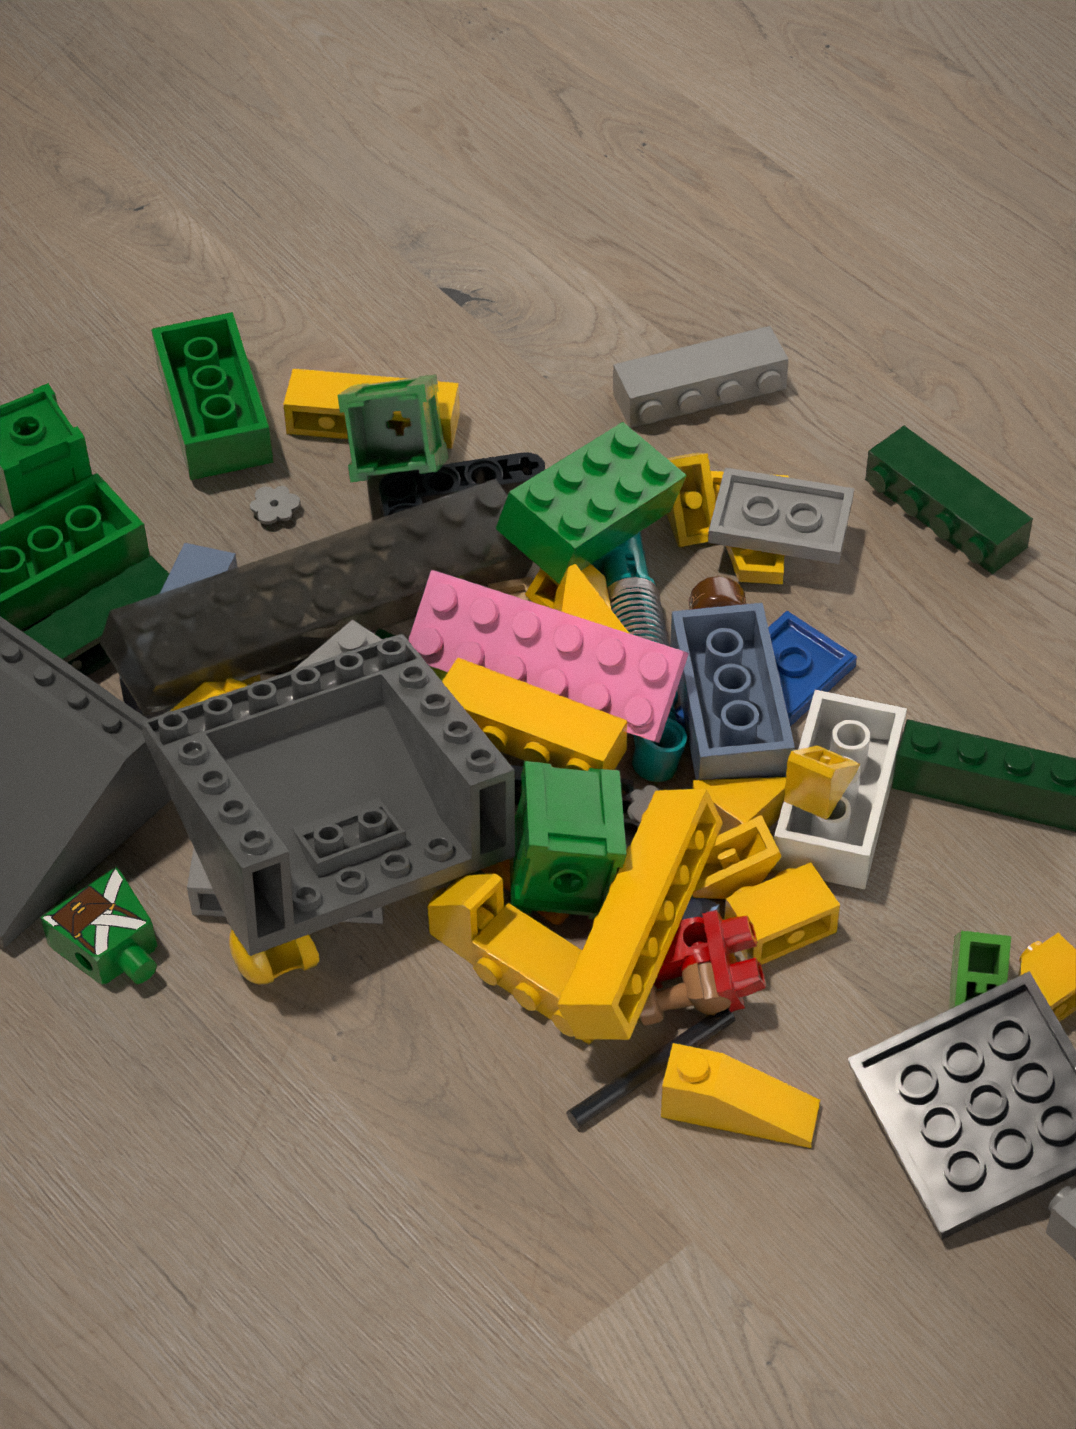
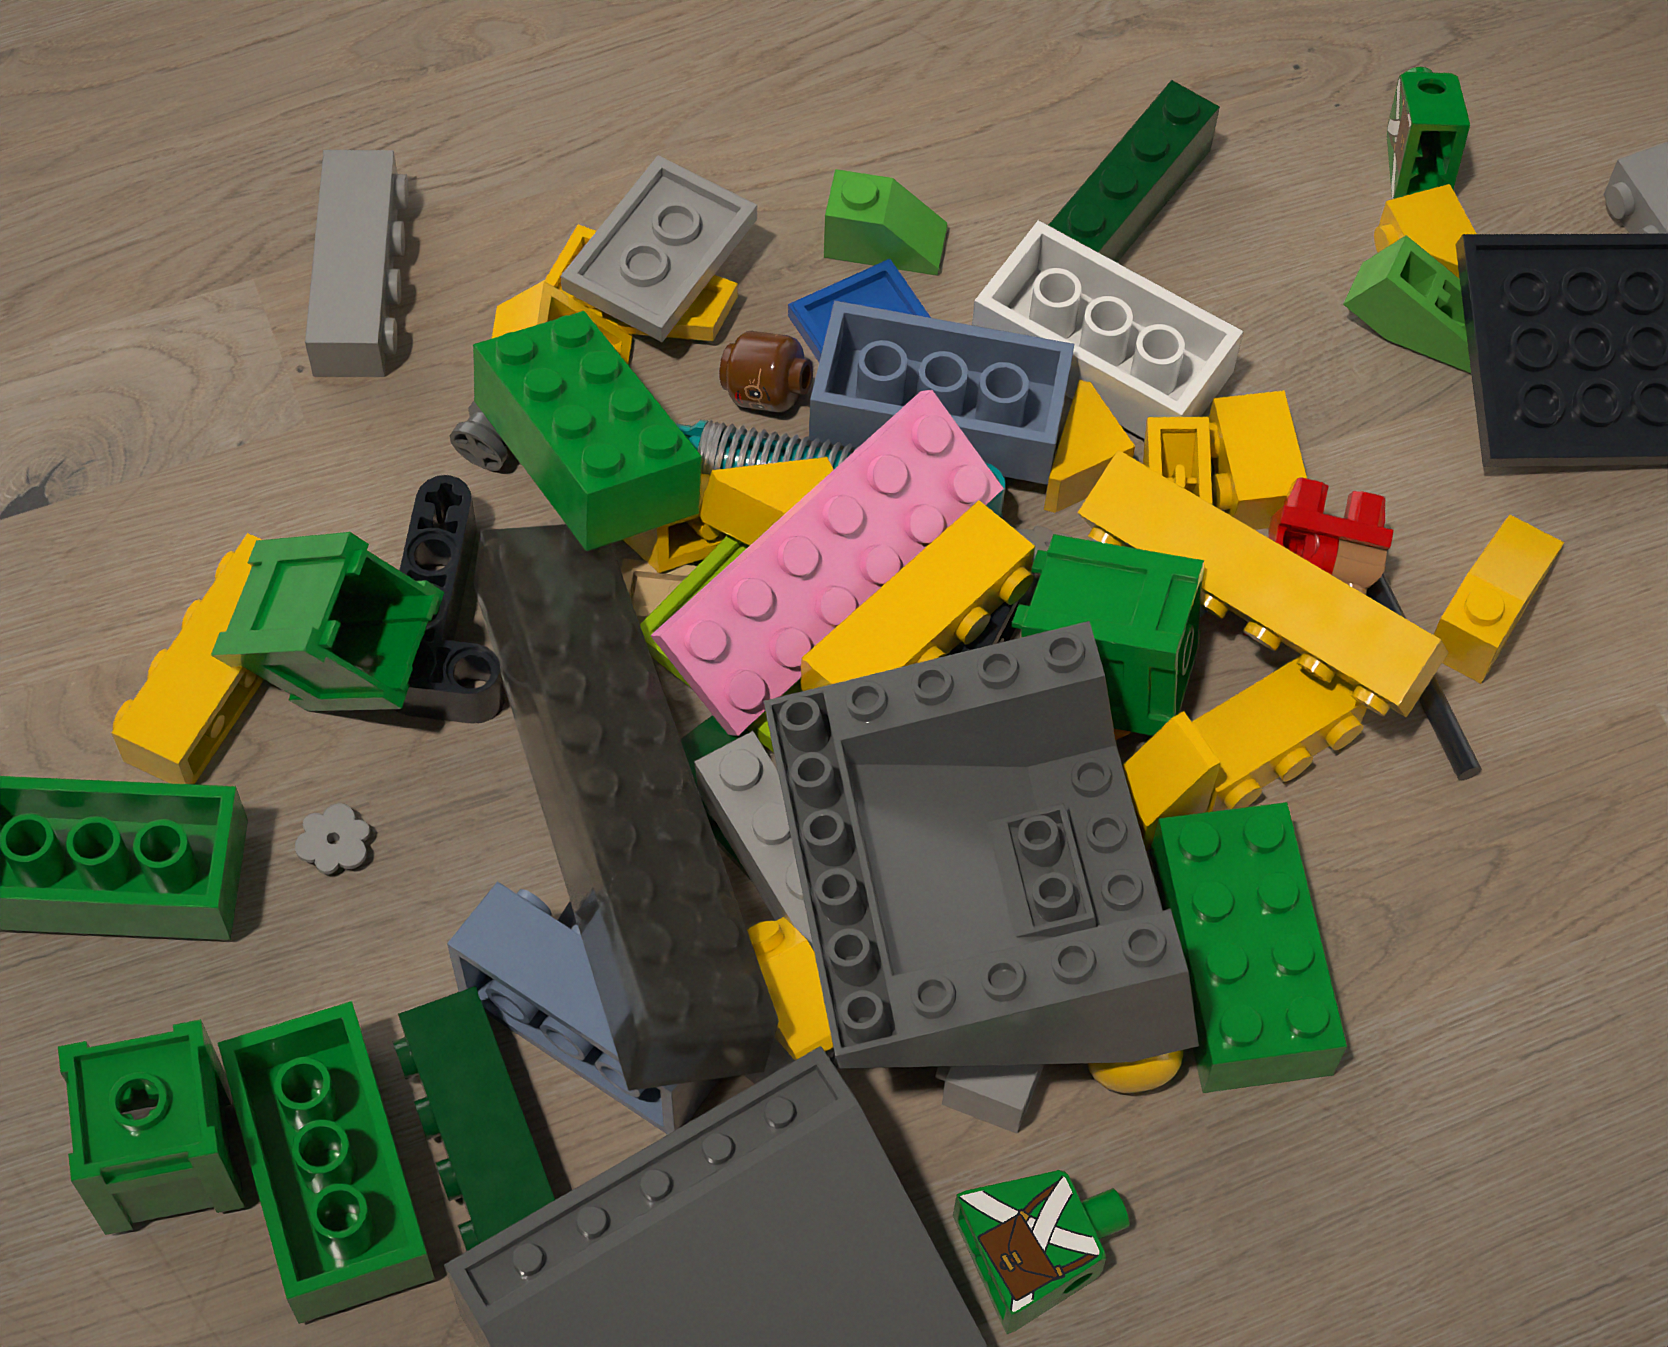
camera: 75 degrees left, 10 degrees up
(364, 997) = (1248, 947): none -> green brick
(817, 779) = (1133, 331): yellow slope -> none
(879, 640) = (881, 220): none -> bright green slope
(948, 499) = (686, 80): dark green brick -> none

